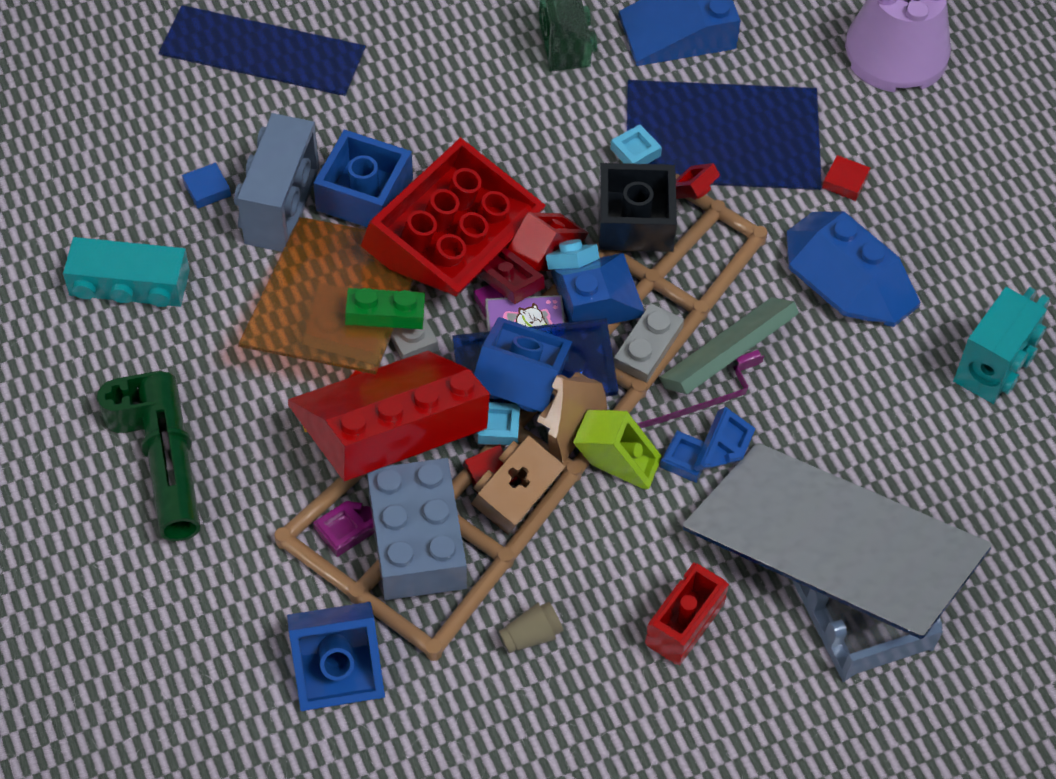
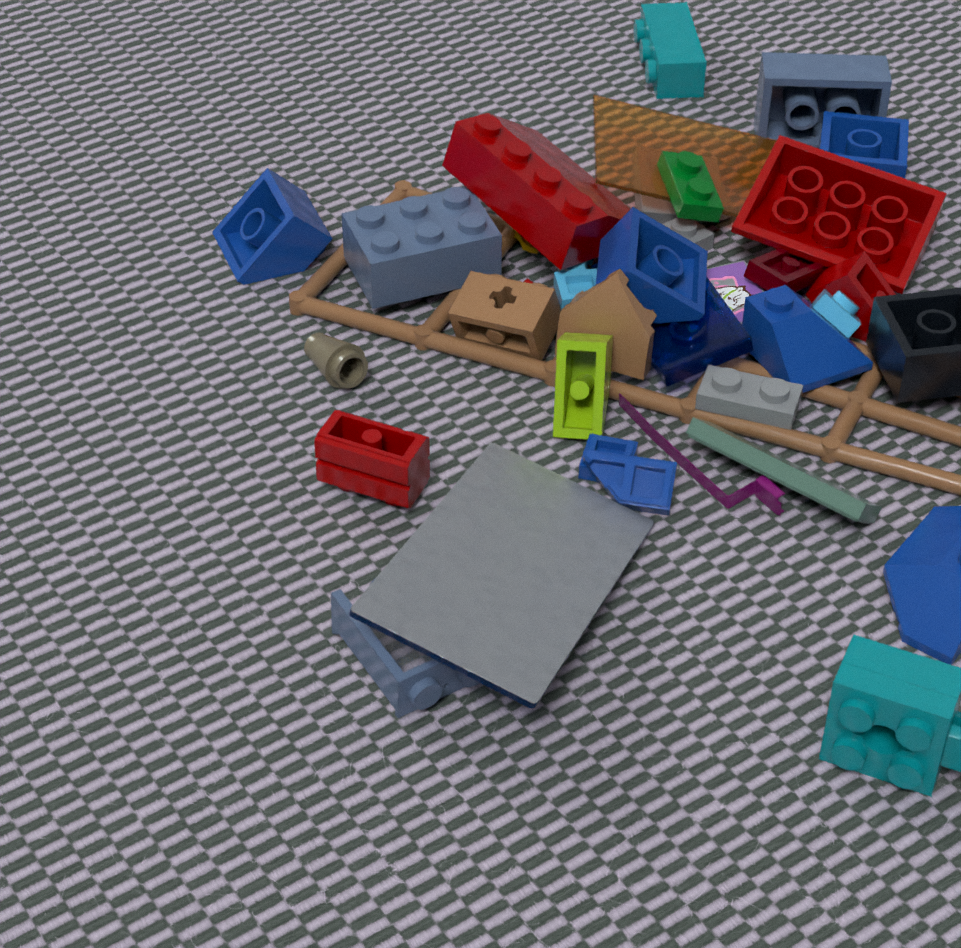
camera: 80 degrees right, 15 degrees down
(157, 413) = (519, 84): dark green piece -> none

